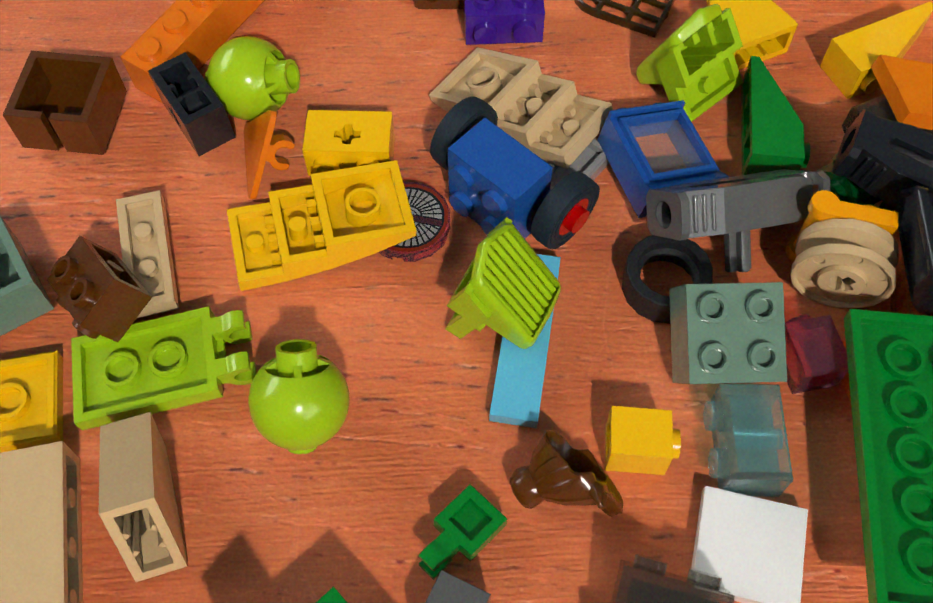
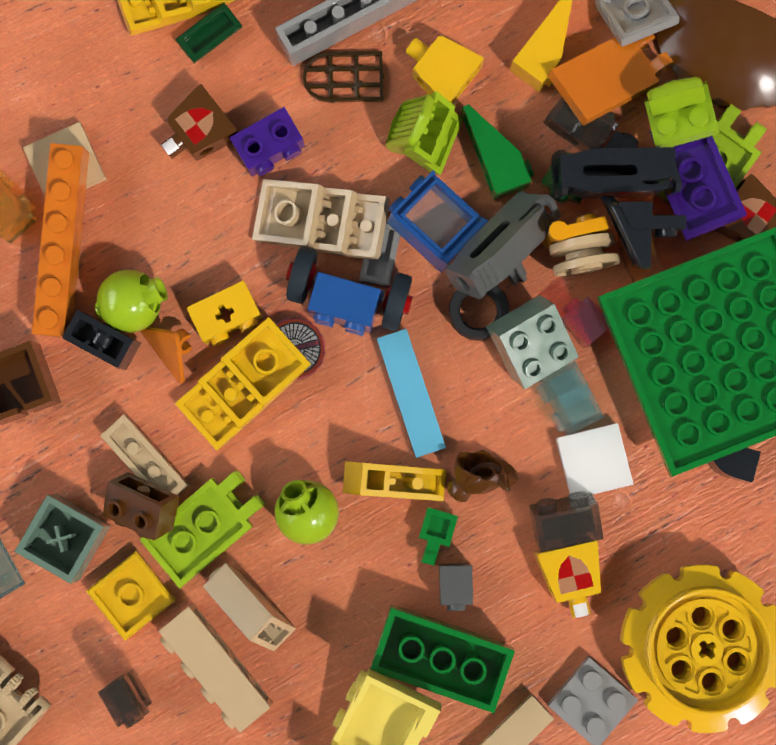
camera: 30 degrees left, 25 degrees up
(442, 427) = (394, 481): none -> yellow slope
(505, 289) = (388, 378): lime piece -> none
(640, 440) = (510, 430): yellow brick -> none

